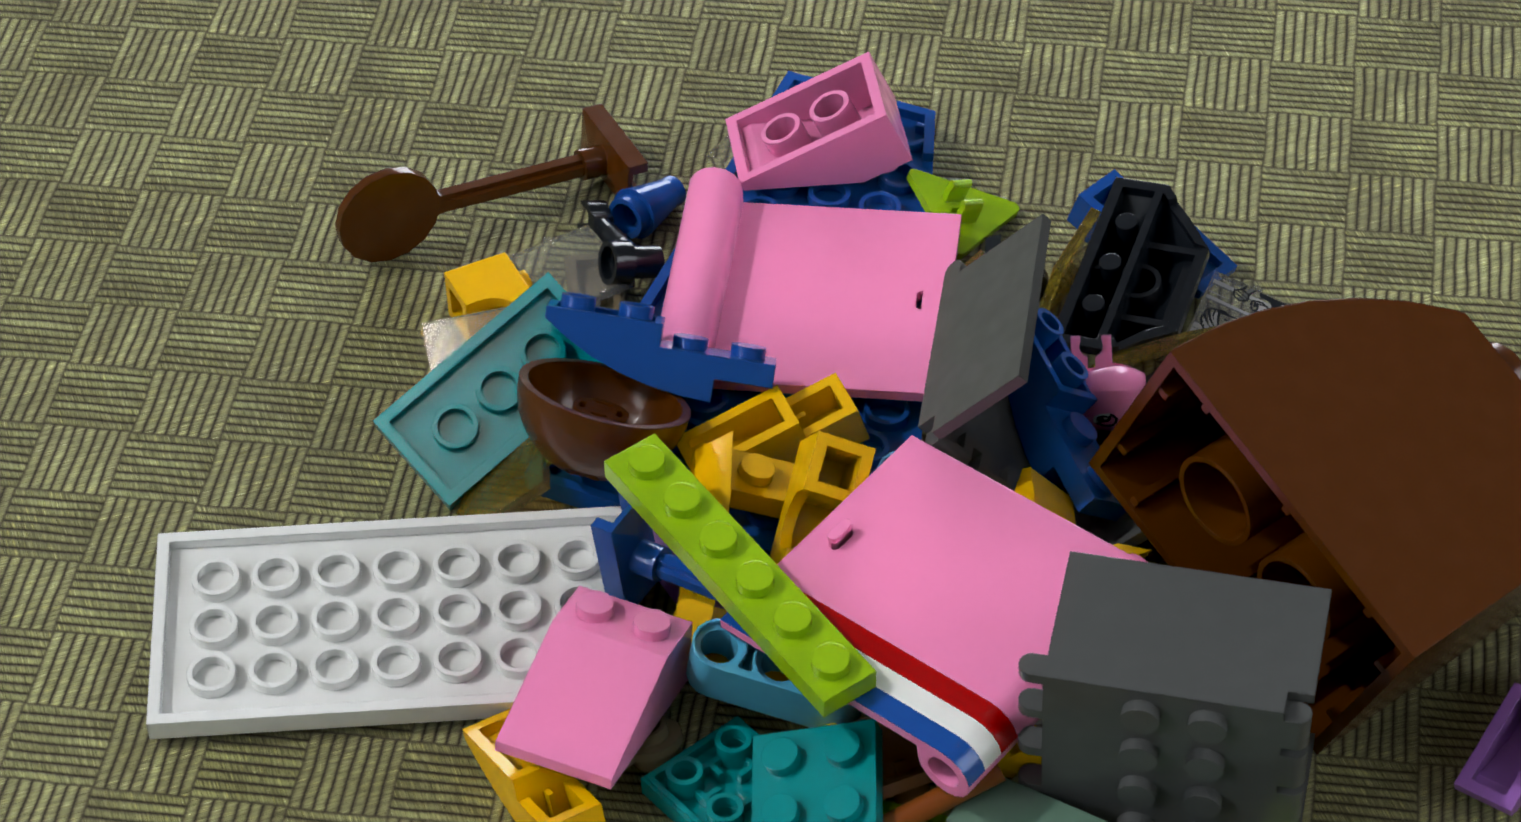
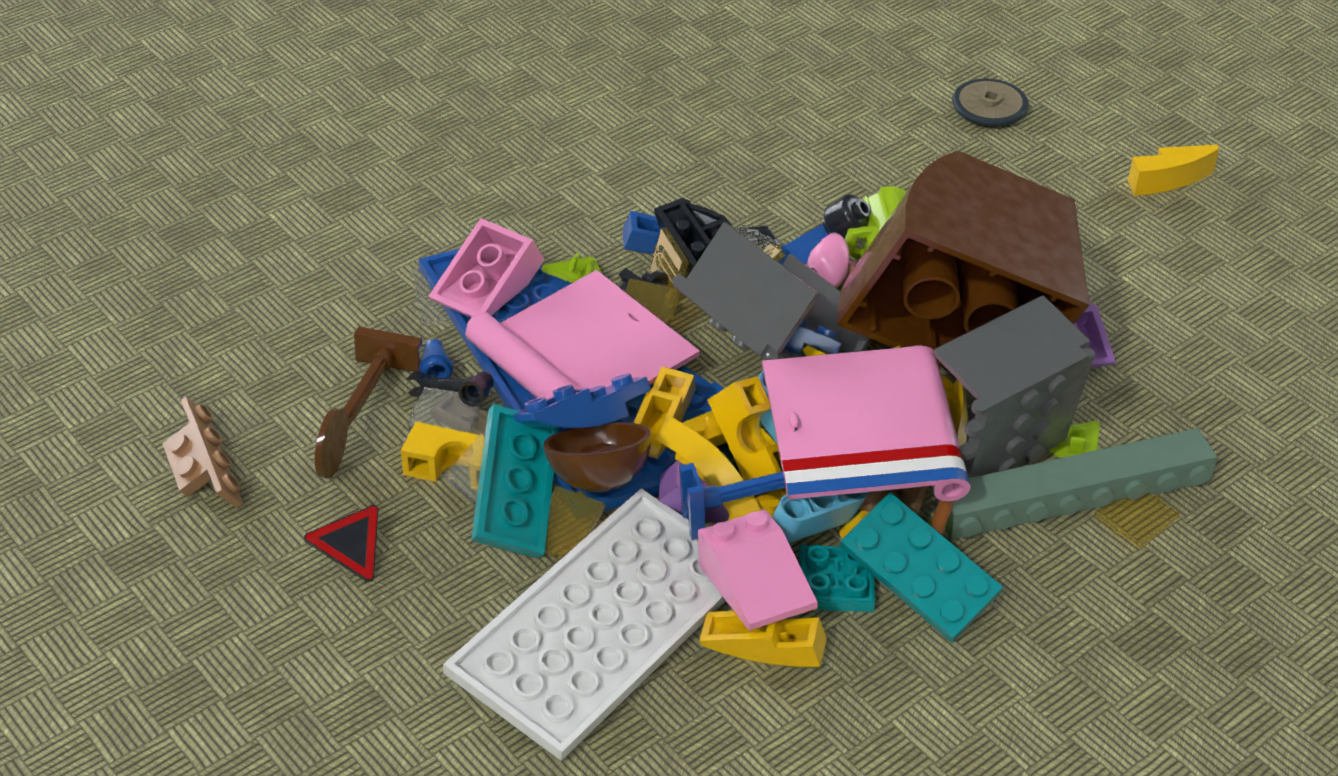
camera: 50 degrees left, 0 degrees up
(273, 145) = (198, 456): none -> medium nougat bracket
(273, 339) = (350, 541): none -> piece
(740, 575) = (782, 465): lime plate -> none

